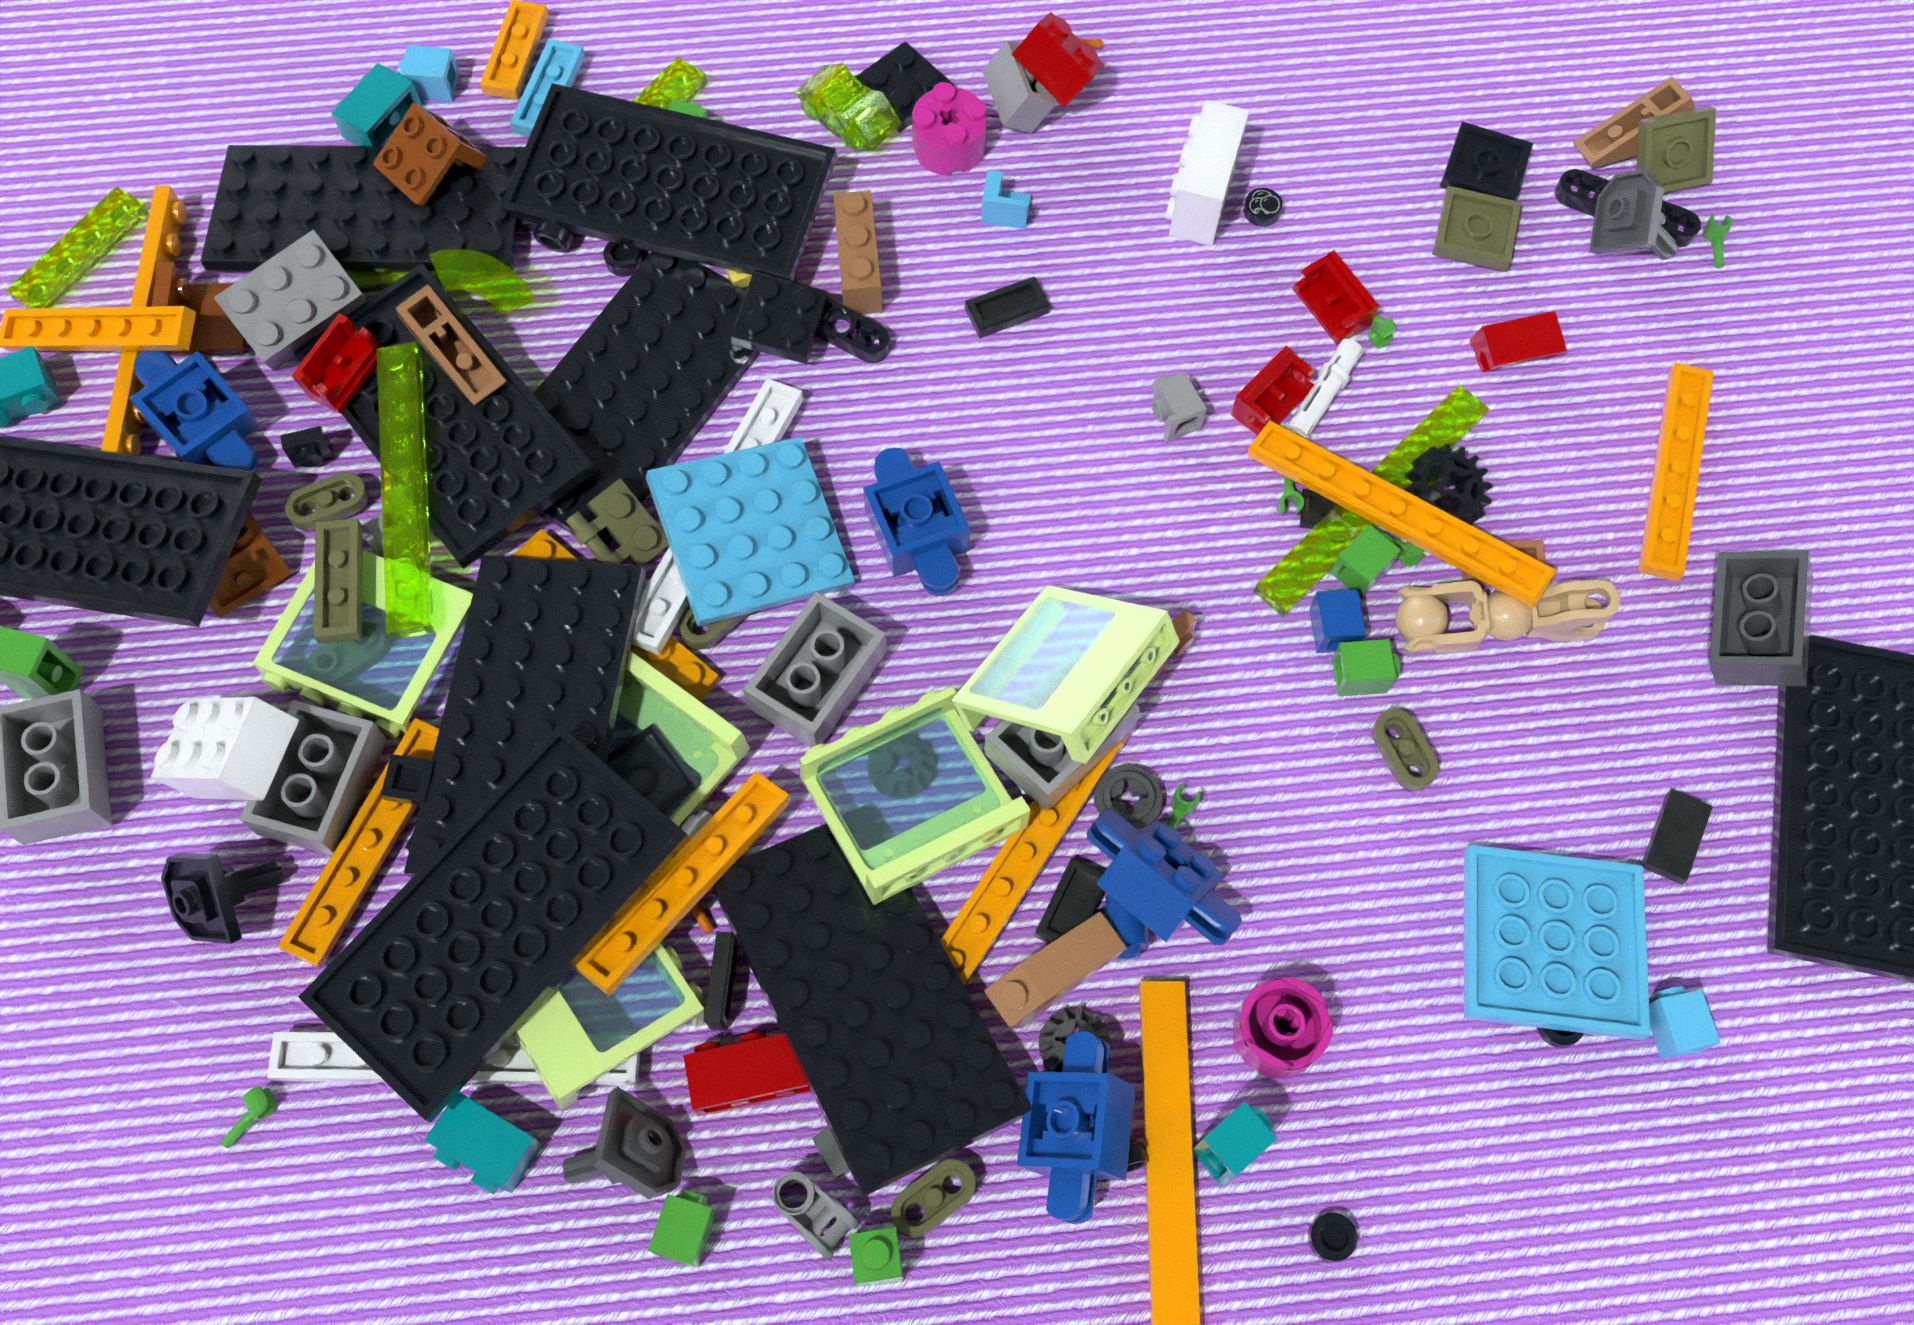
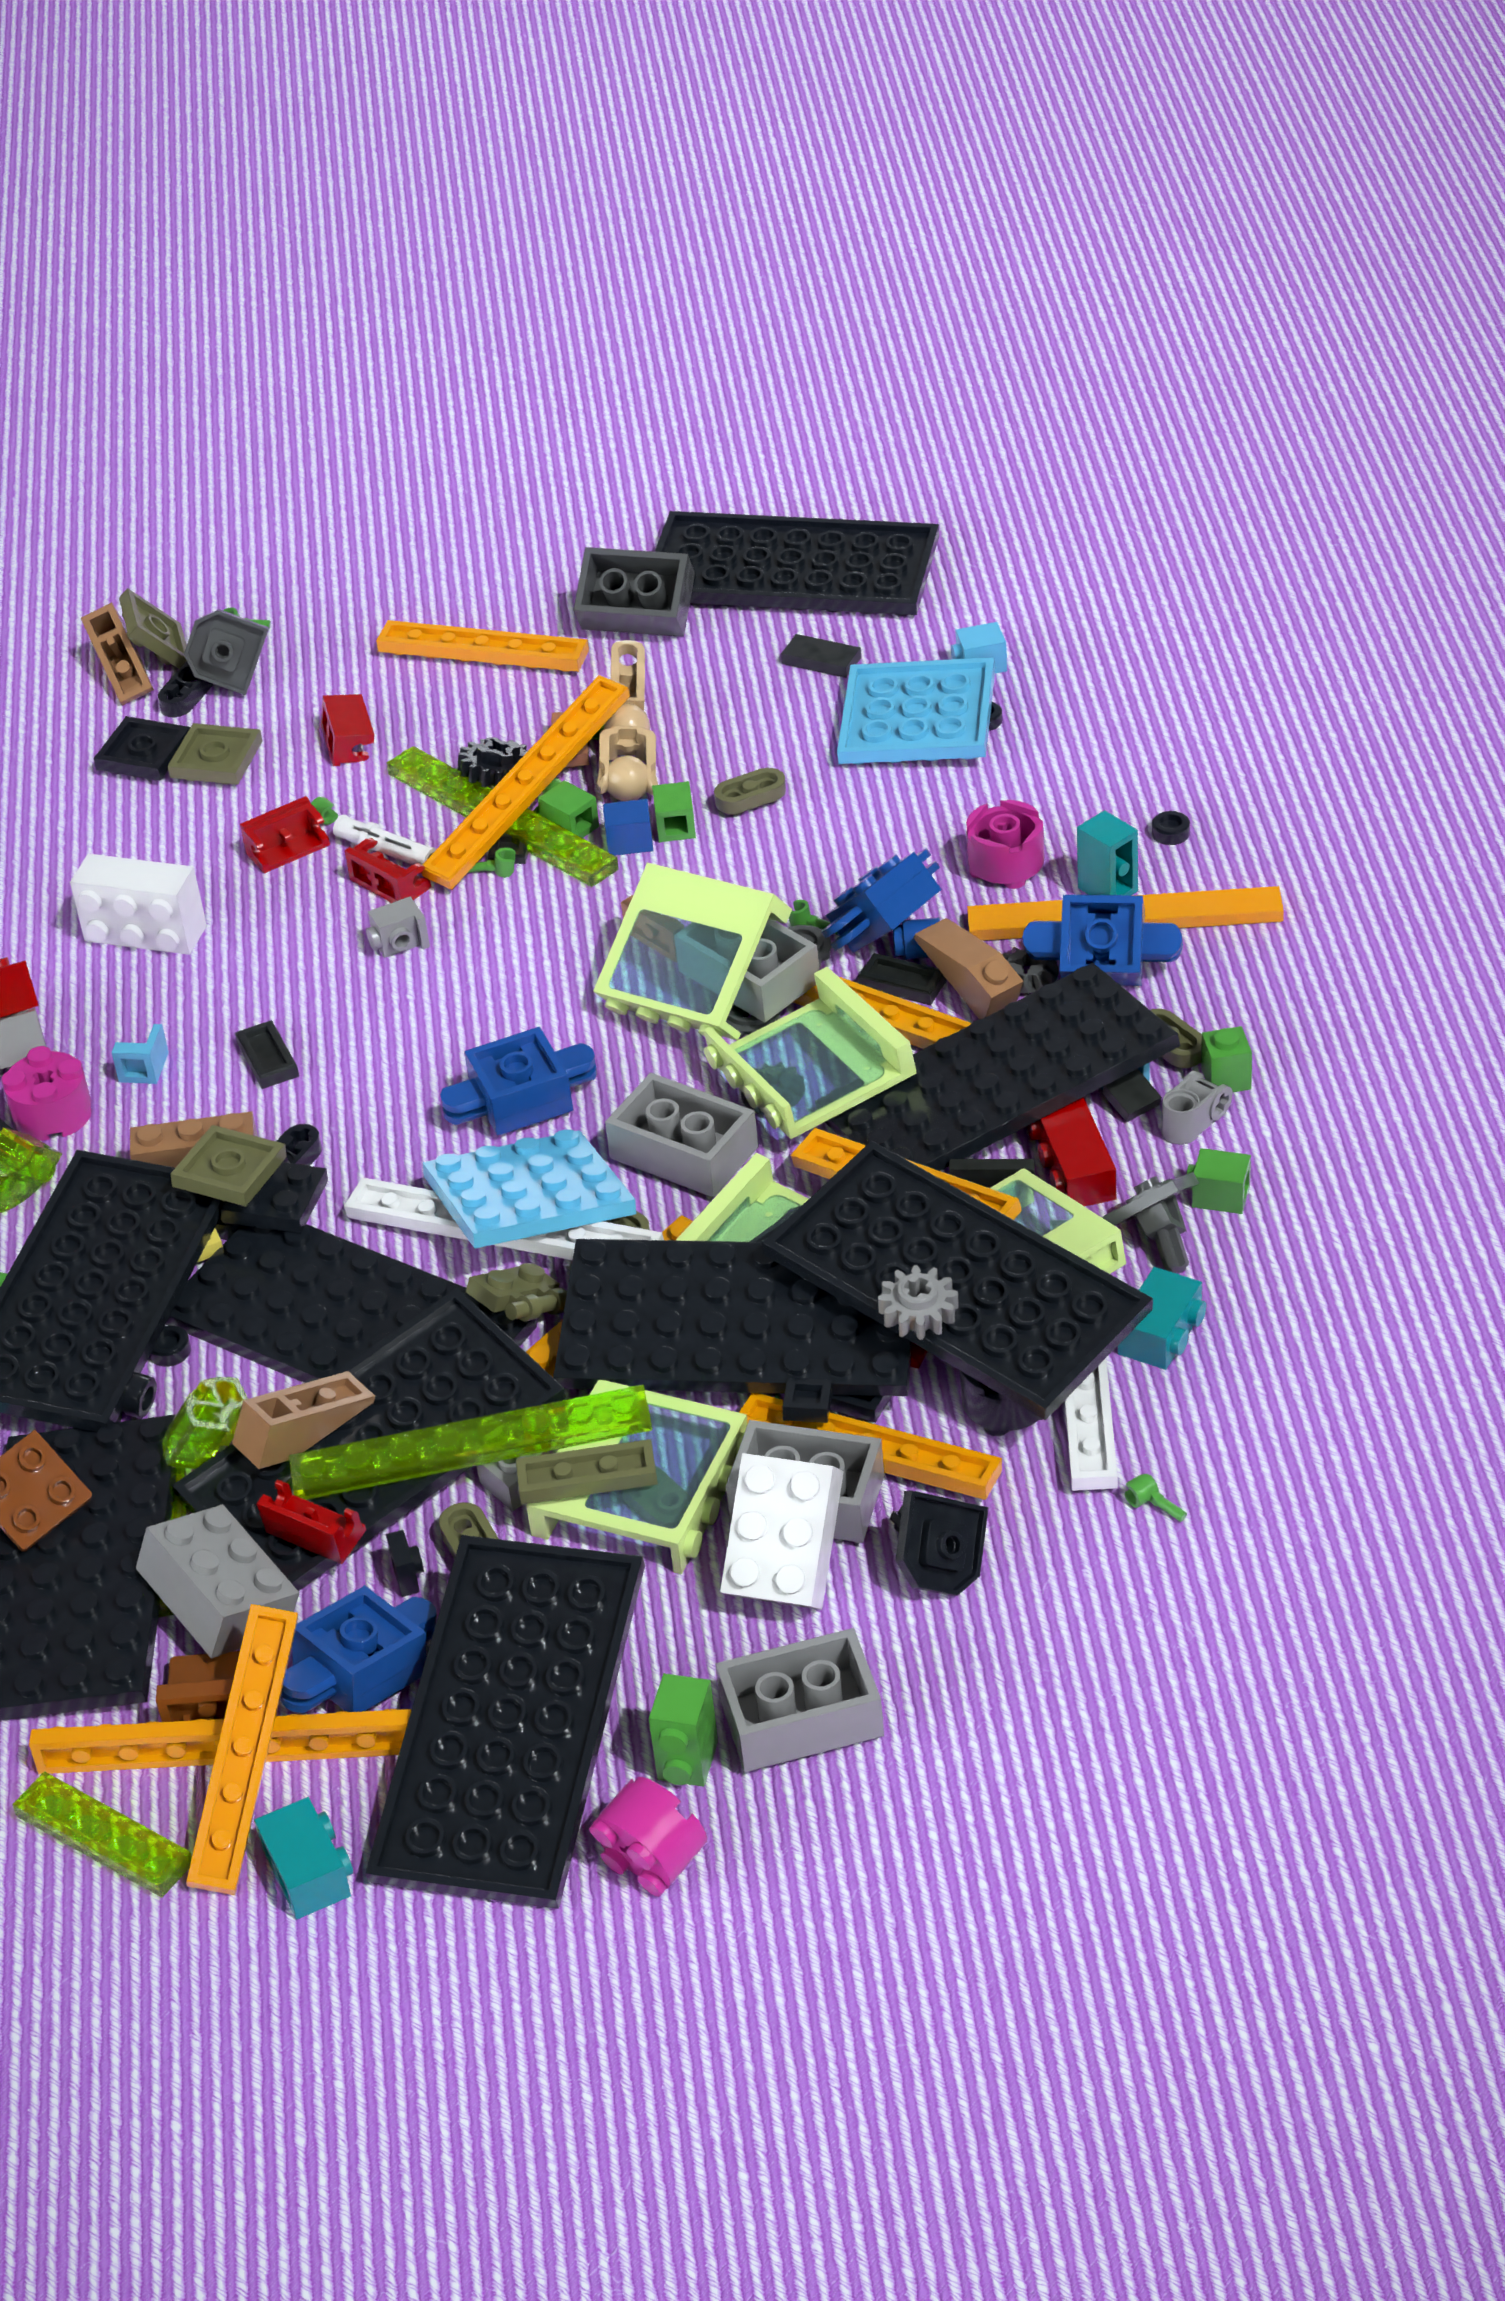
camera: 85 degrees left, 25 degrees down
(424, 888) = (918, 1302): none -> light grey gear
(788, 266) = (228, 1165): none -> olive plate

